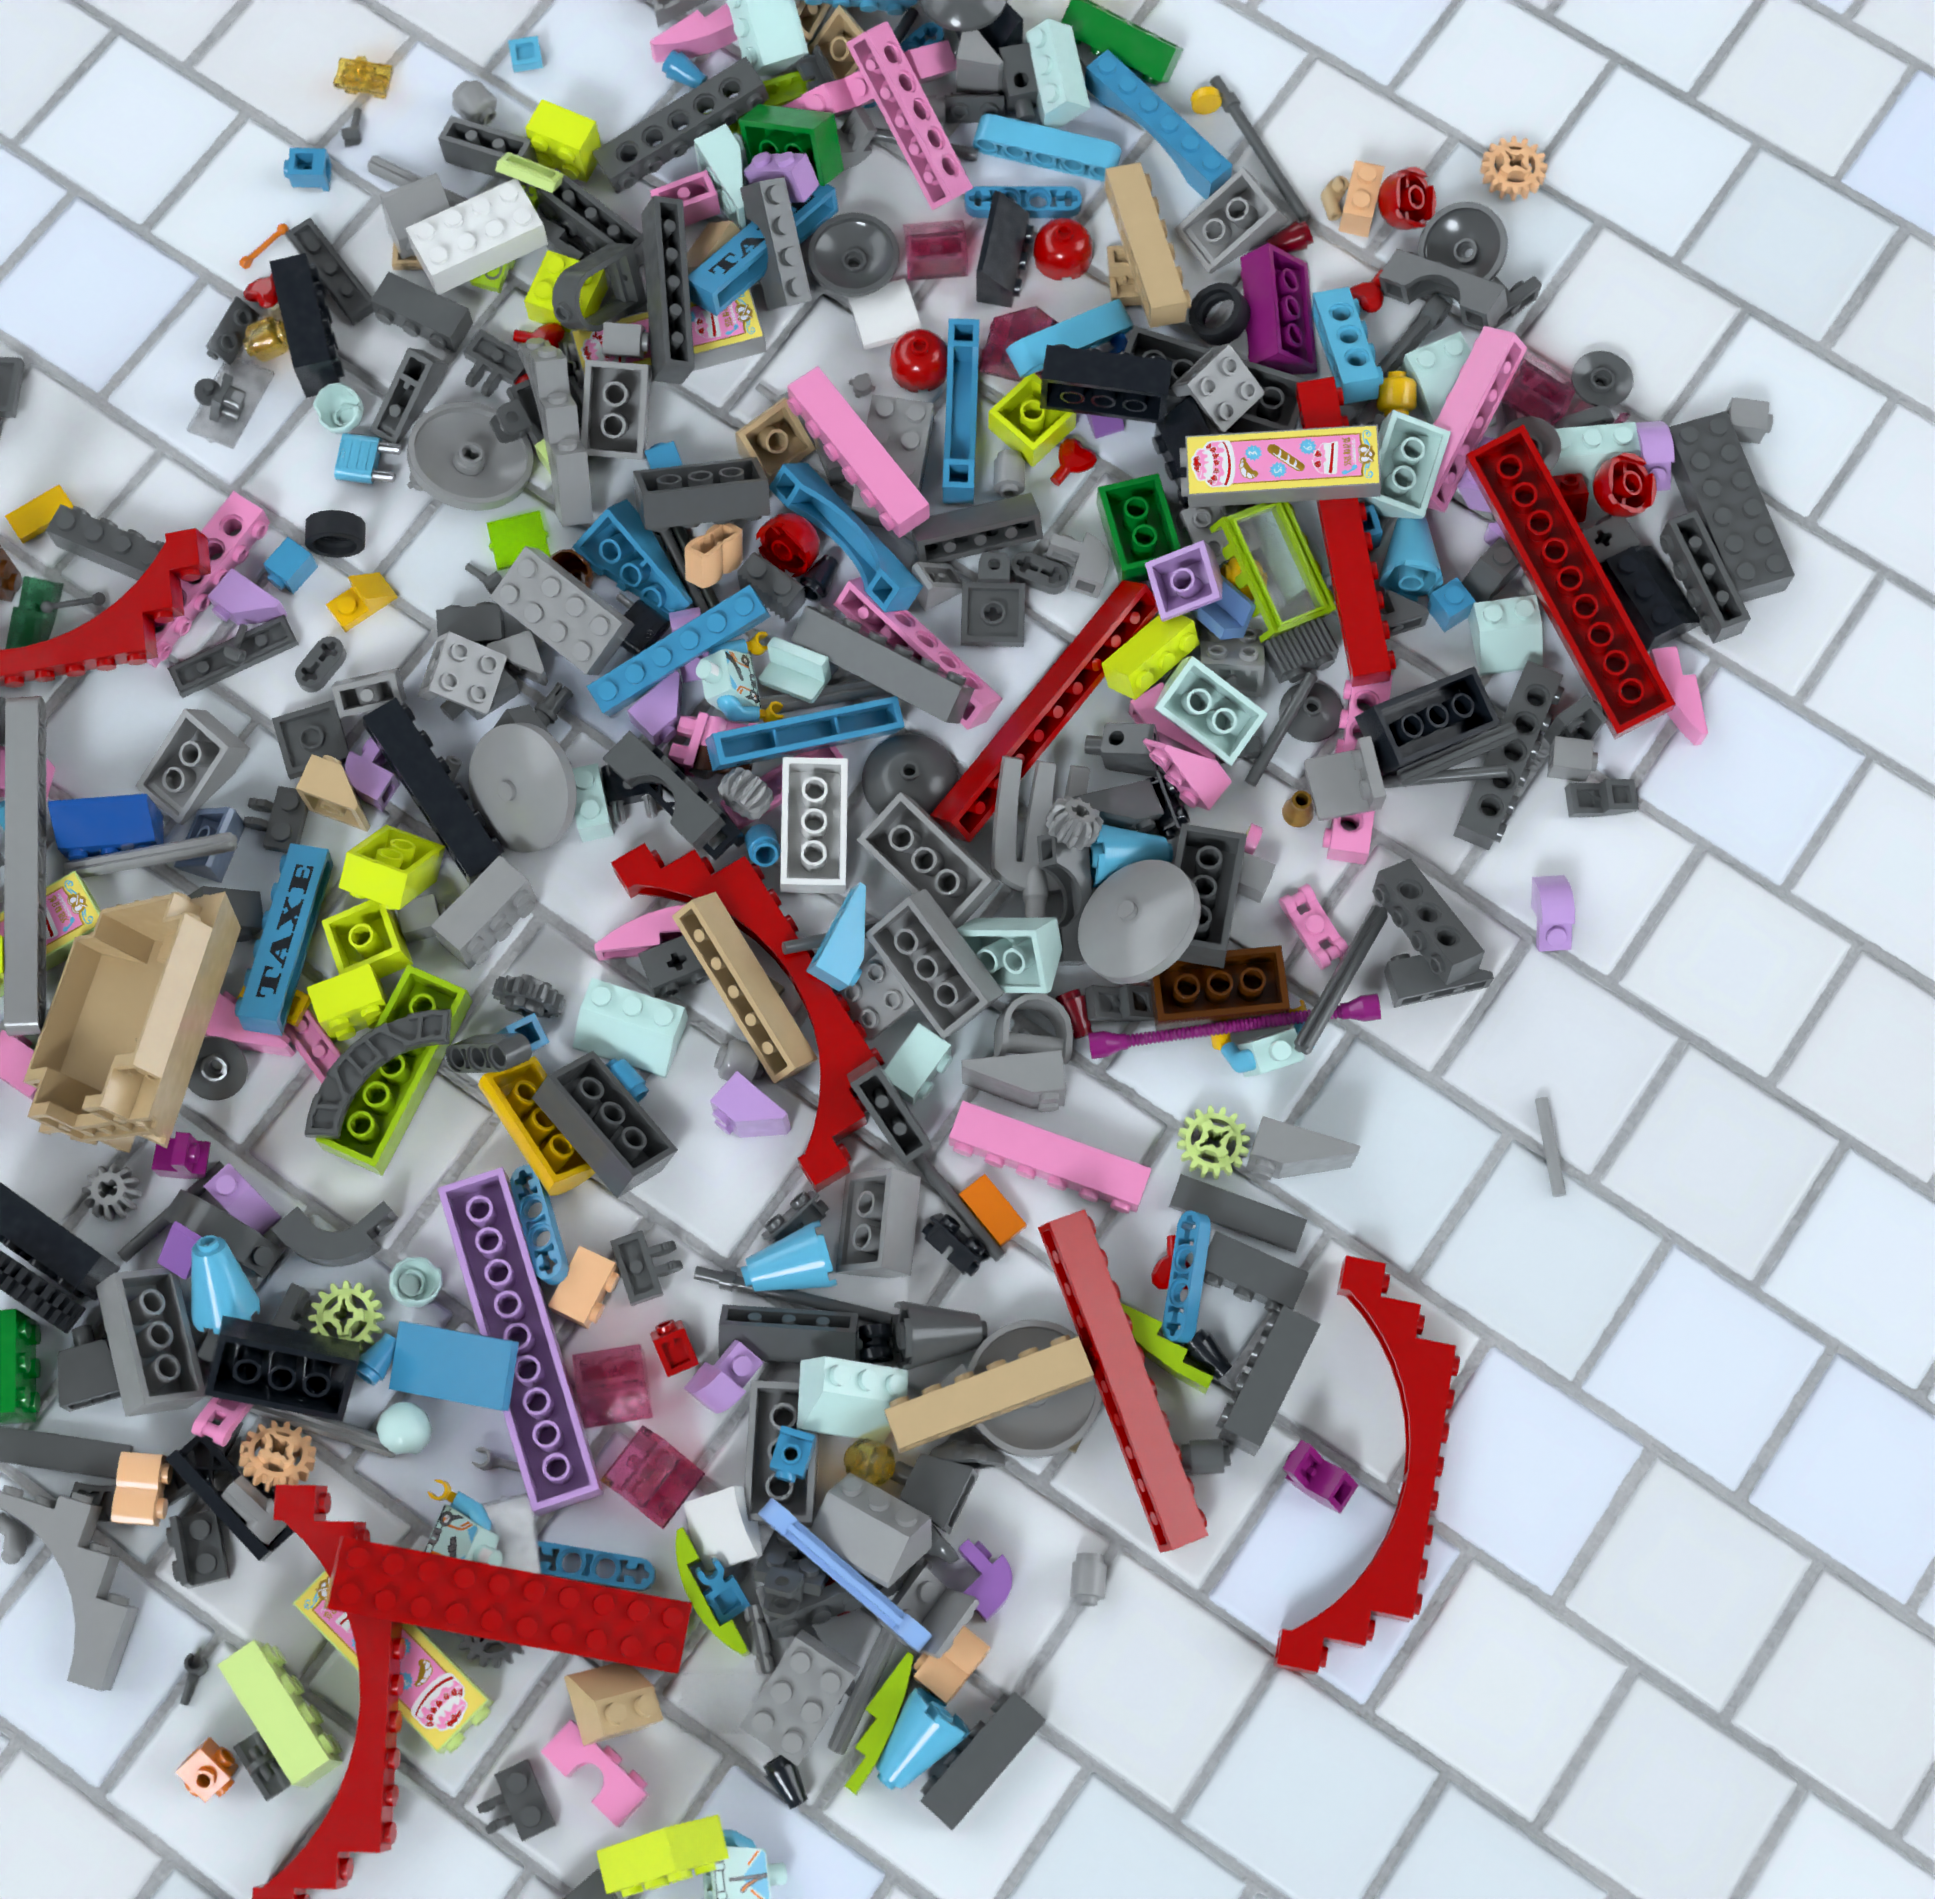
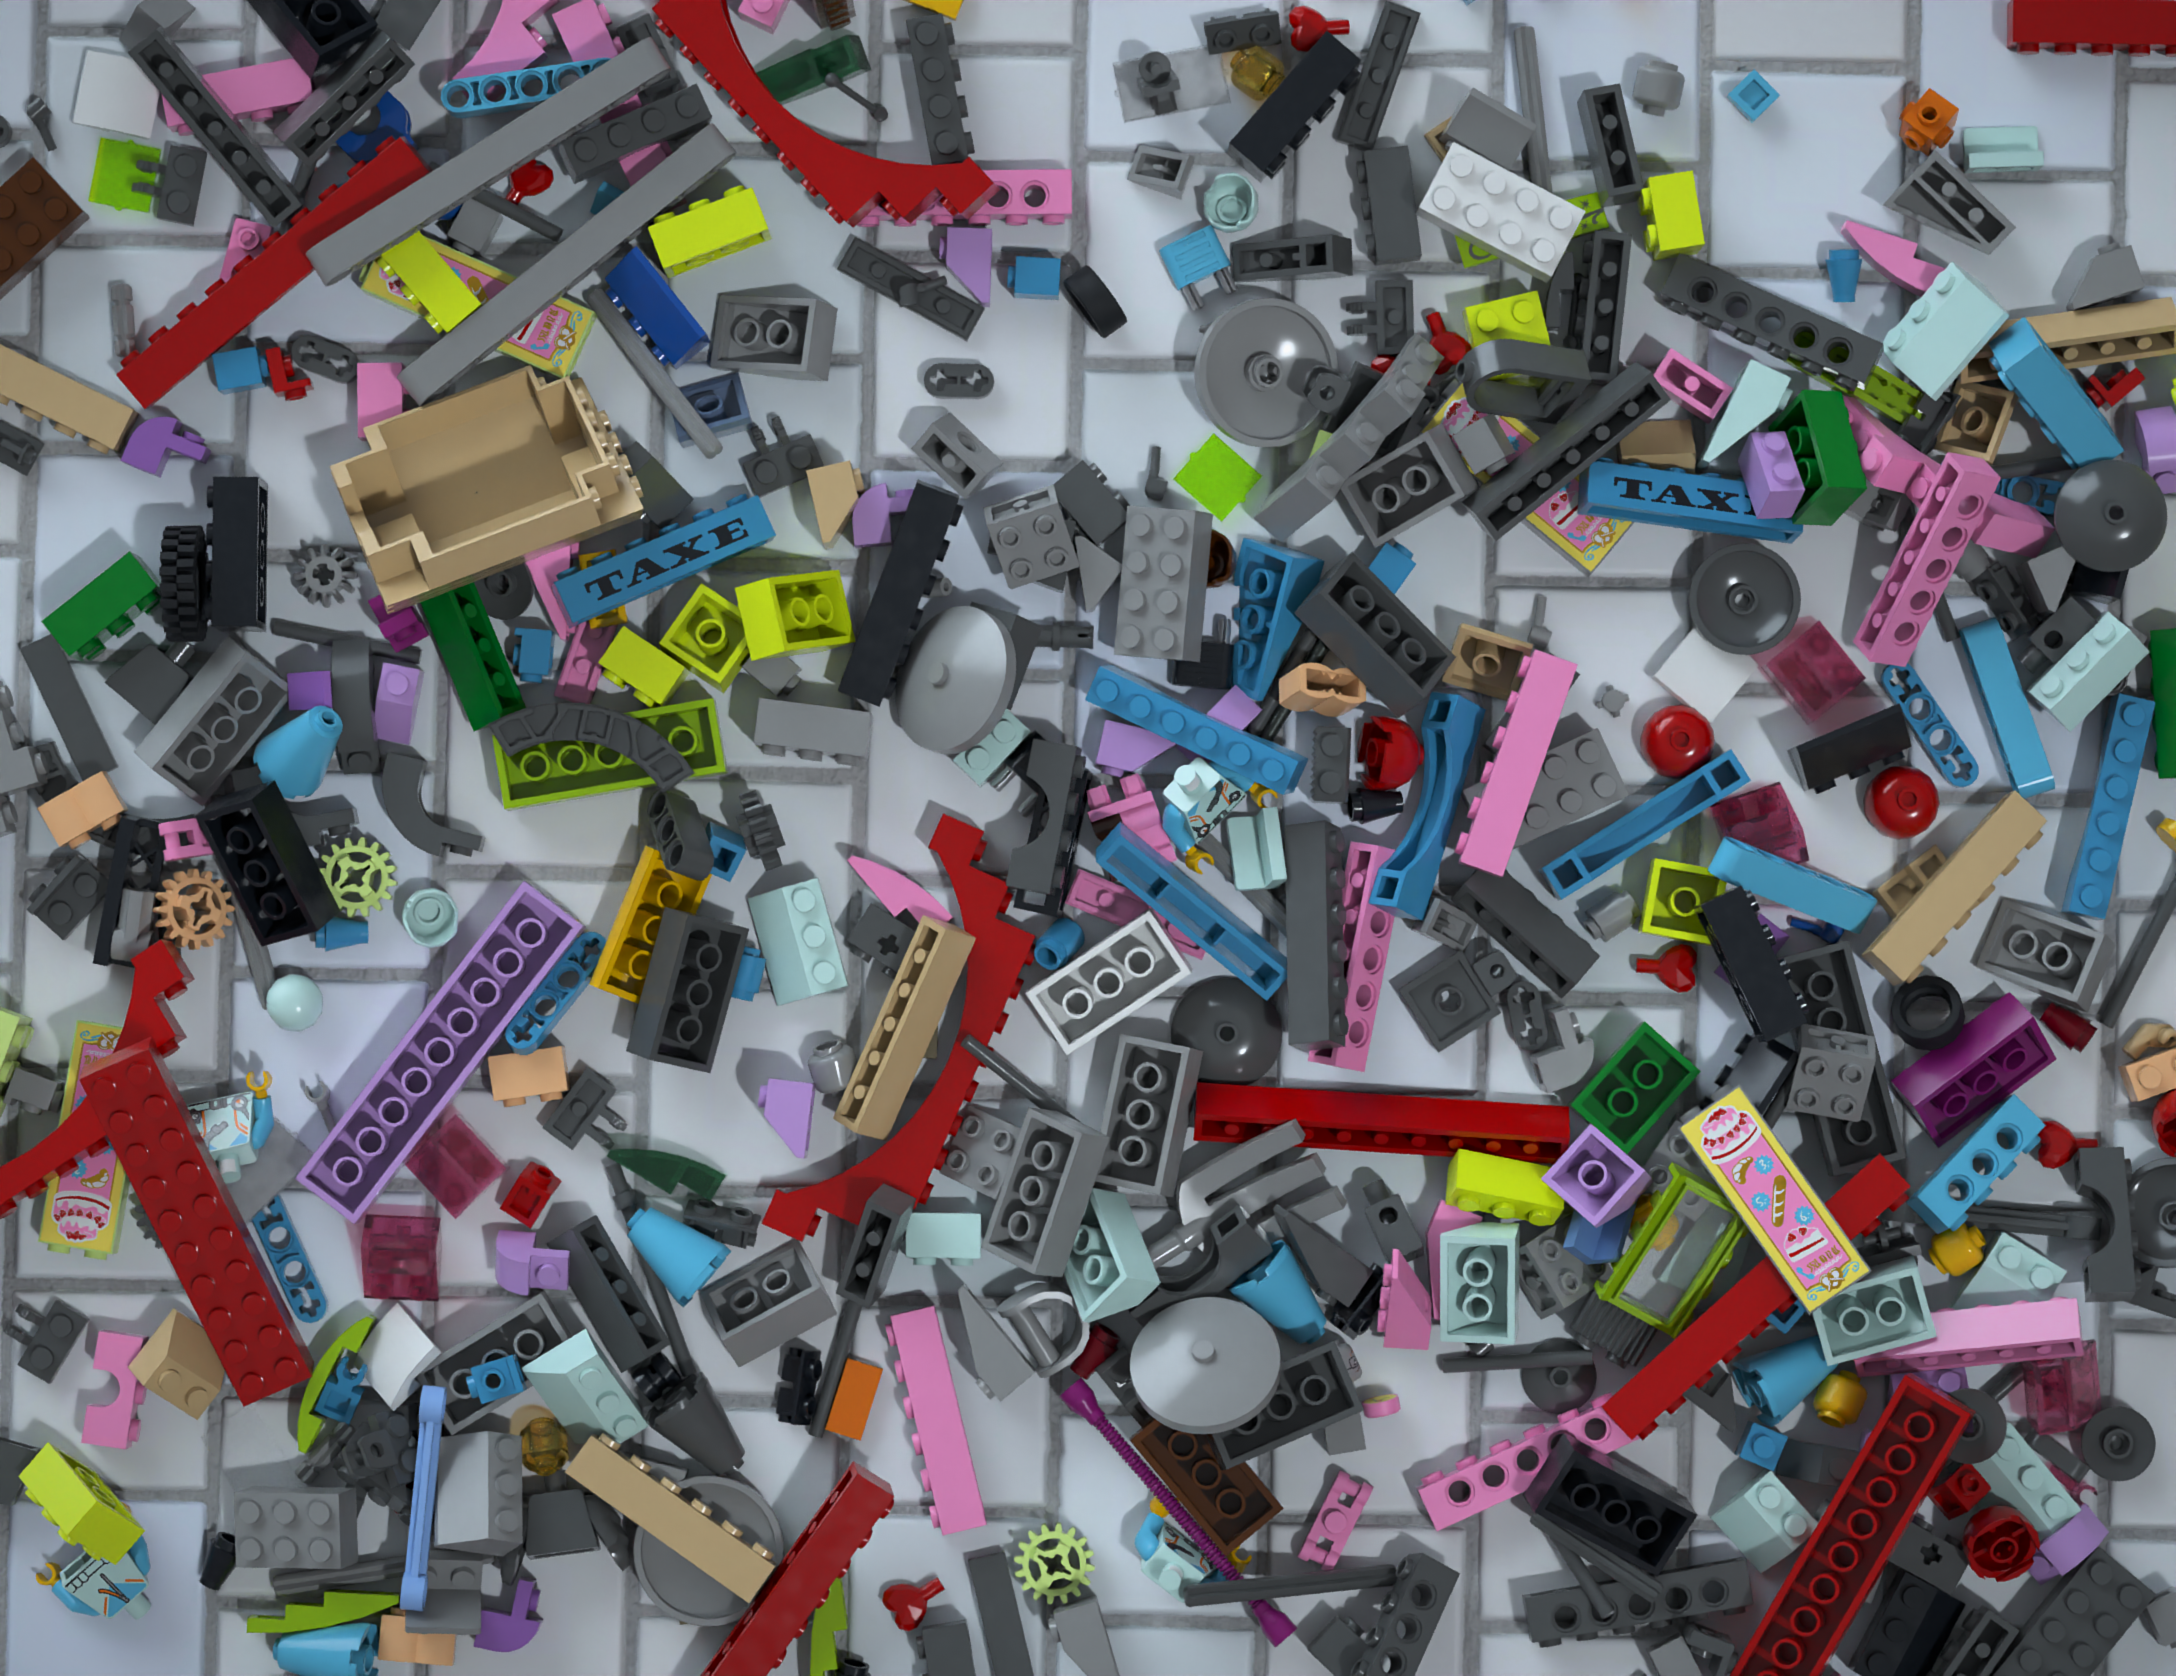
camera: 50 degrees right, 15 degrees up
(83, 751) = (709, 231): none -> neon yellow brick
(245, 1120) = (473, 655): none -> green brick
(282, 1078) = (534, 654): none -> dark azure brick
(283, 438) = (1161, 170): none -> light grey slope
(309, 732) = (877, 431): dark grey plate -> none
(323, 1678) = (34, 1091): none -> light grey brick
(363, 599) = (1051, 371): yellow slope -> none
(454, 1365) = (376, 1012): dark azure tile -> none
(529, 172) = (1601, 218): yellowish green tile -> none
(728, 1230) = (670, 1169): none -> clear green slope
(745, 793) = (1095, 896): light grey gear -> none
(770, 209) = (1721, 494): arch -> none
(843, 945) = (1003, 1094): medium azure slope -> none
(1074, 822) = (1264, 1238): light grey gear -> none
(1182, 1276) = (906, 1629): dark azure beam -> none
(1298, 809) = (1437, 1422): pearl gold cone -> none
(1346, 782) = (1490, 1464): light grey bracket -> none
(1452, 534) = (1840, 1399): none -> yellow head

